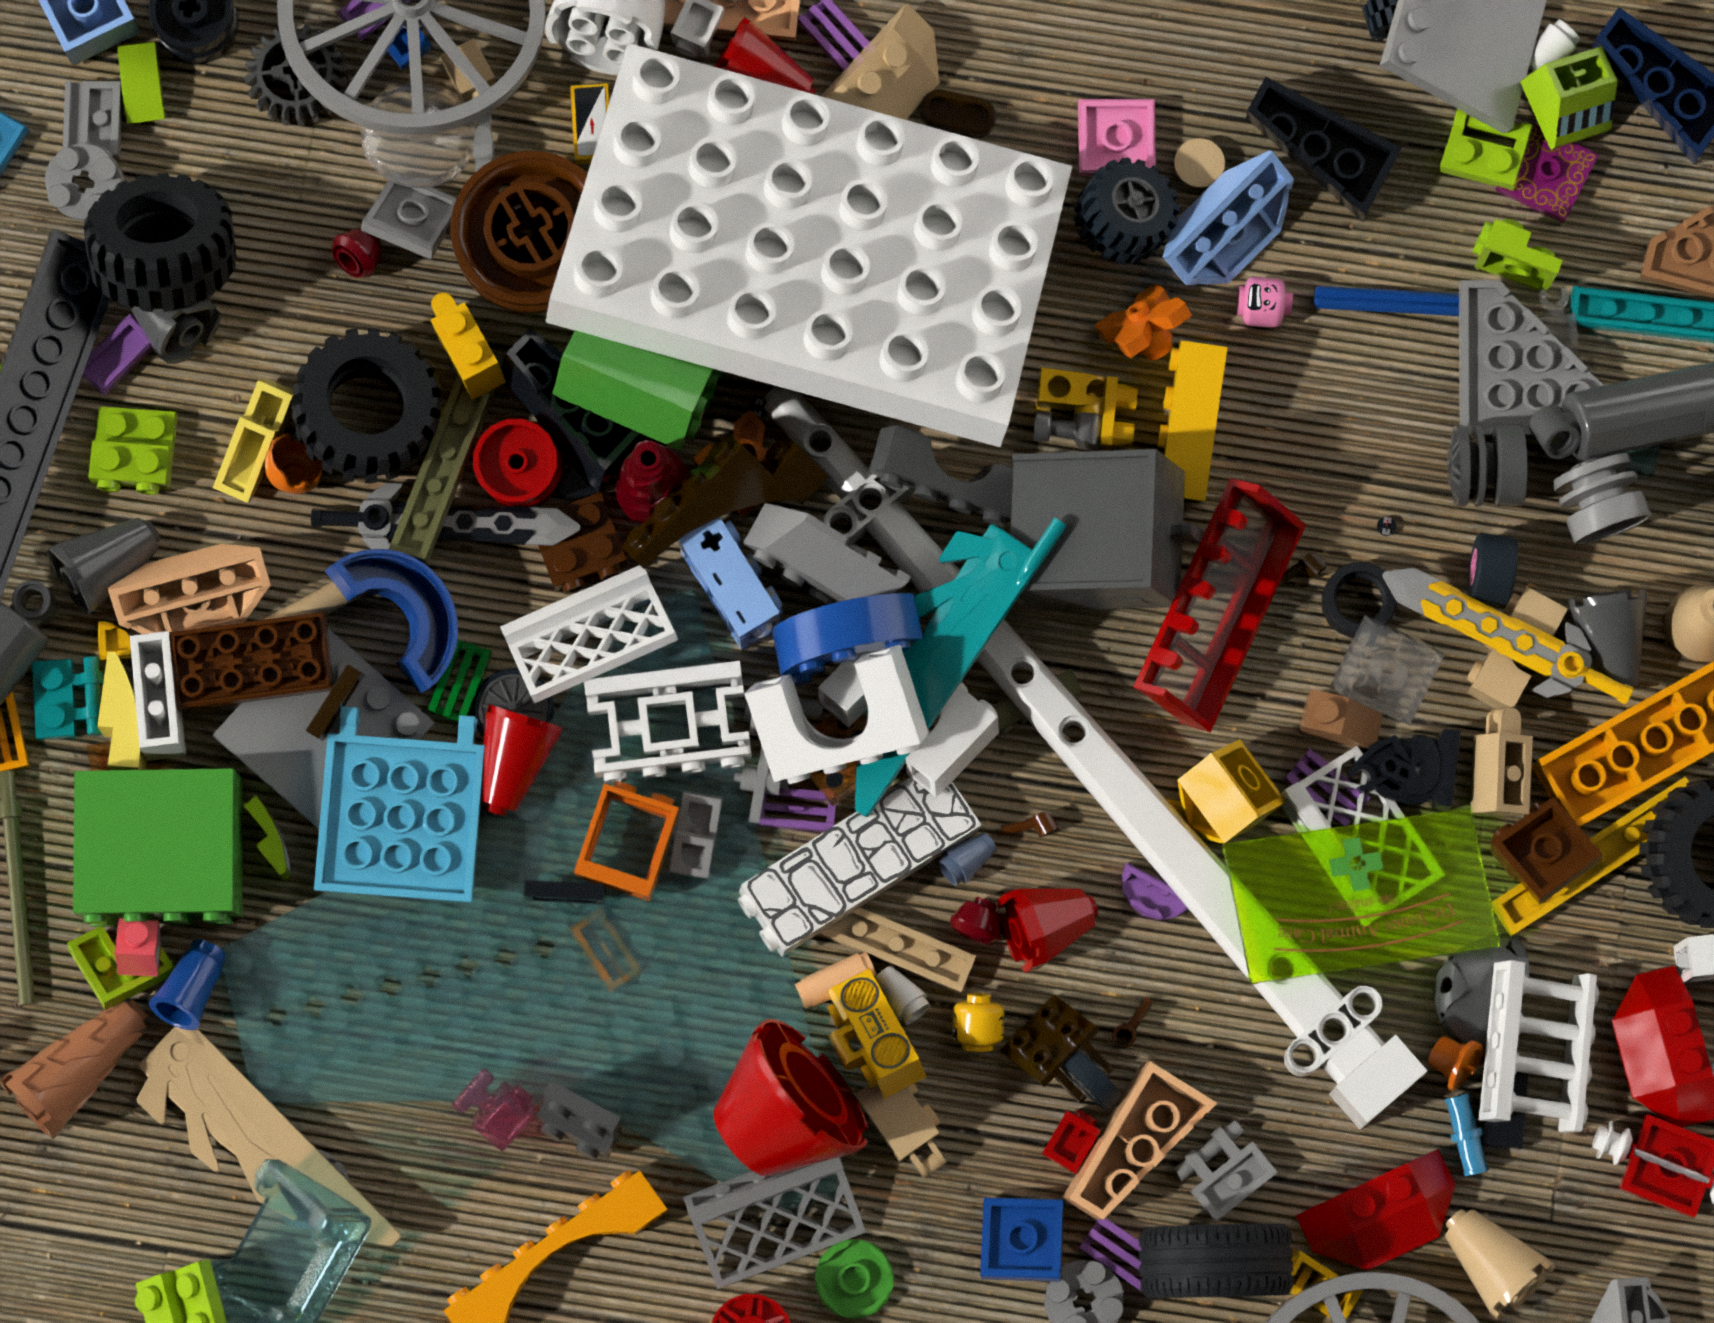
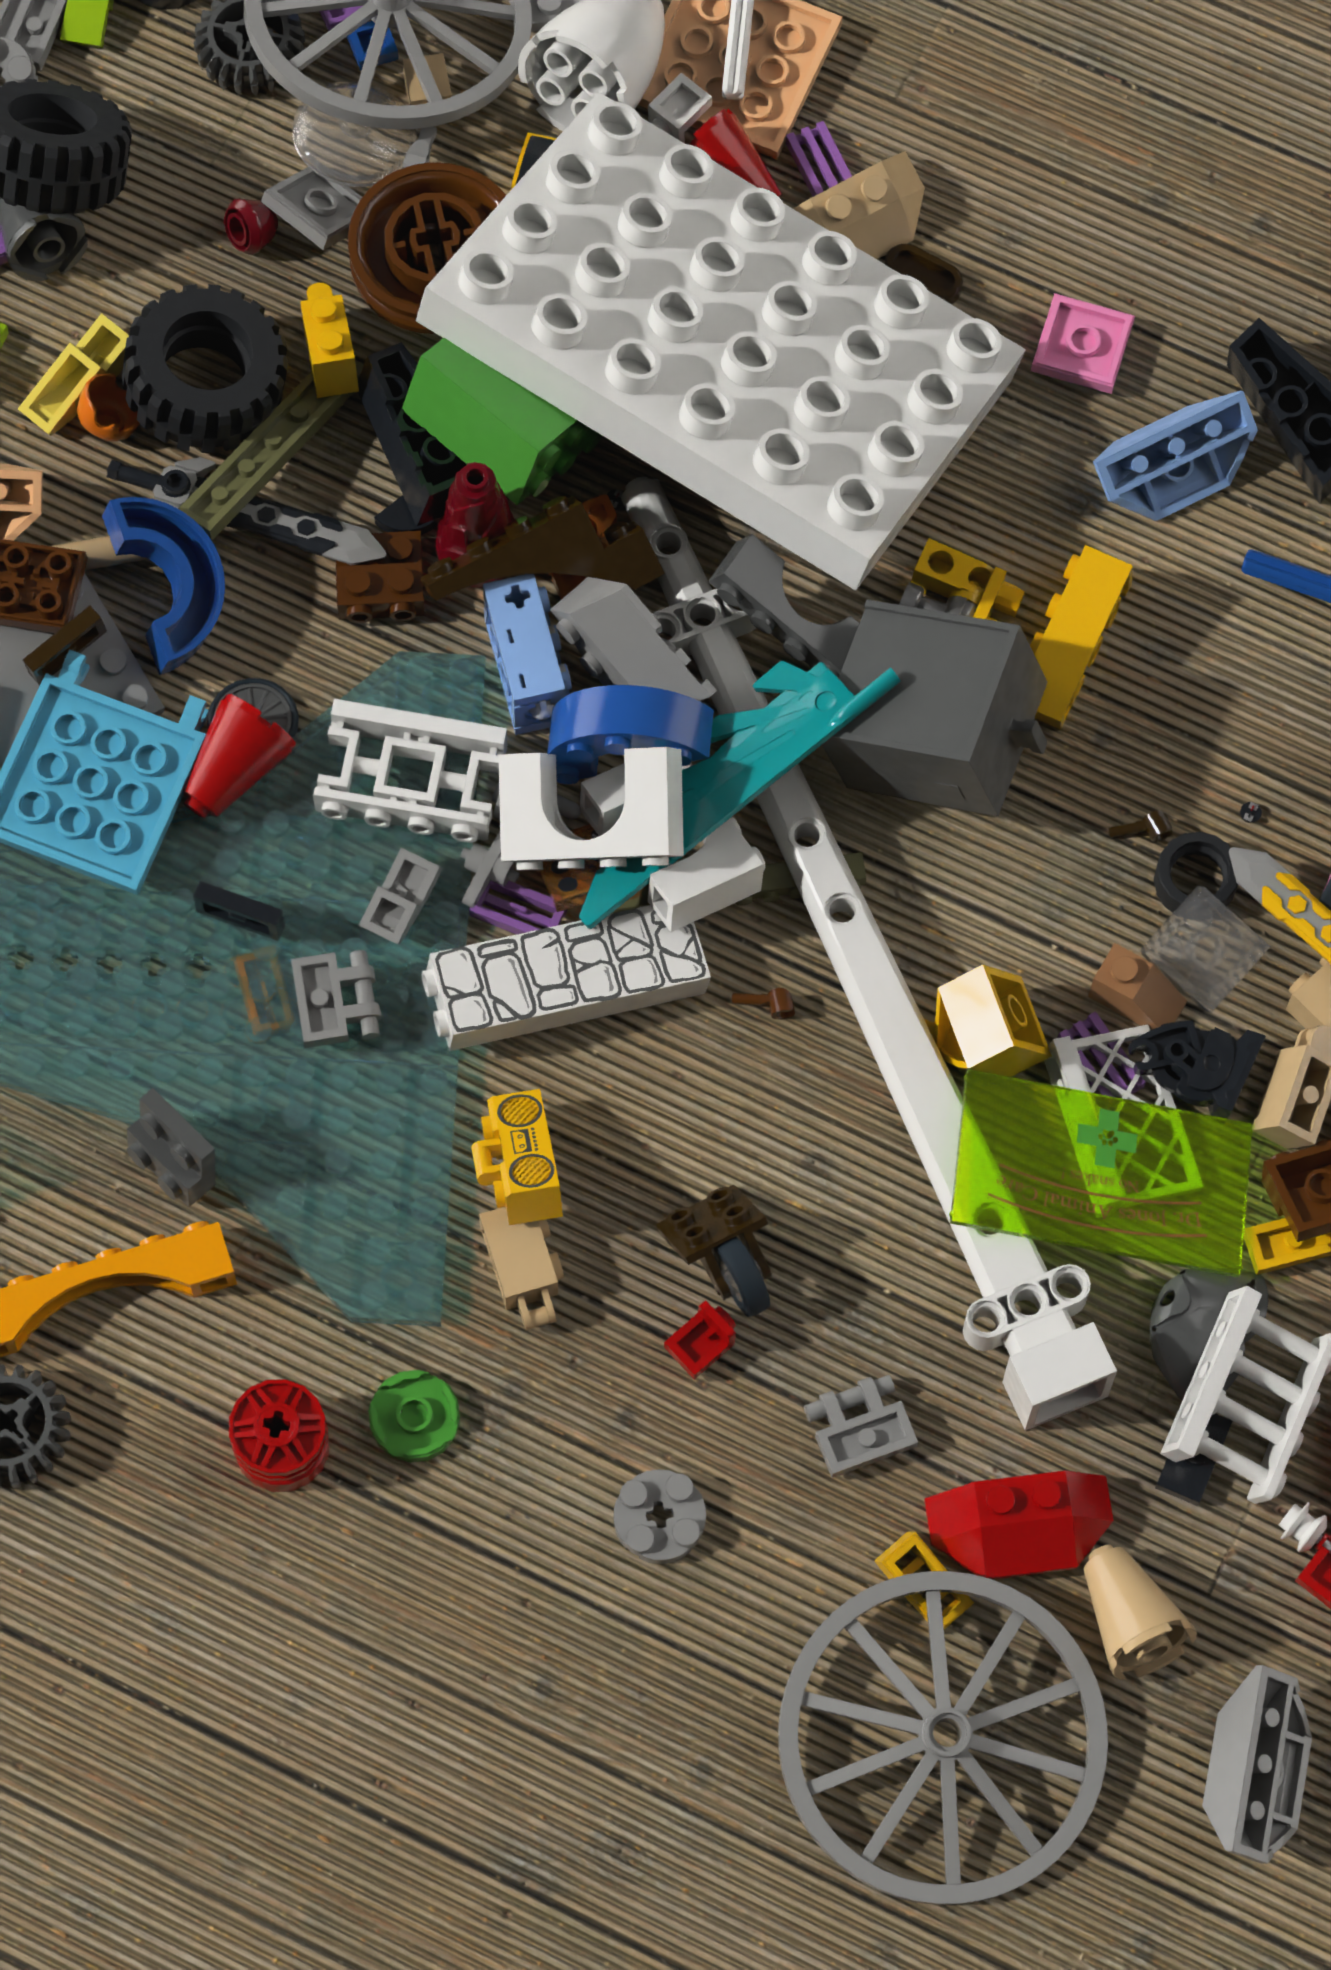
camera: 15 degrees right, 10 degrees down
(471, 650) = (215, 640): green tile -> none
(499, 1114) = (90, 1119): clear pink brick -> none
(518, 441) = (343, 472): red wheel -> none
(581, 615) = (365, 642): white fence -> none
(614, 879) = (298, 913): orange window -> none
(660, 948) = (321, 1001): none -> light grey plate
(754, 1189) = (348, 1278): light grey fence -> none
(787, 1105) = (396, 1193): red cone -> none
(815, 987) = (473, 1095): light nougat piece -> none
(902, 995) = (567, 1132): white cone -> none
(903, 948) = (584, 1084): tan plate -> none
(965, 859) = (683, 1013): sand blue cone -> none
(978, 921) = (674, 1080): dark red cone -> none
(978, 1023) = (639, 1184): yellow head -> none
(1022, 1239) = (612, 1427): blue plate -> none
(1044, 922) = (747, 1100): red cone -> none
(1097, 1256) = (694, 1450): medium lavender tile -> none
(1126, 211) = (1069, 411): black wheel -> none
(1134, 1021) = (809, 1240): reddish brown hand -> none
(1139, 1133) = (781, 1351): light nougat wedge -> none
(1145, 324) = (1053, 530): orange plant -> none
(1150, 895) = (873, 1113): medium lavender tile -> none
(1199, 163) = (1161, 392): tan piece -> none
(1215, 1260) = (816, 1503): black tyre -> none
(1220, 604) = (1042, 827): window -> none
(1263, 302) = (1188, 547): bright pink head -> none
(1455, 1060) = (1154, 1385): orange piece -> none
(1466, 1134) = (1142, 1469): dark azure pin -> none

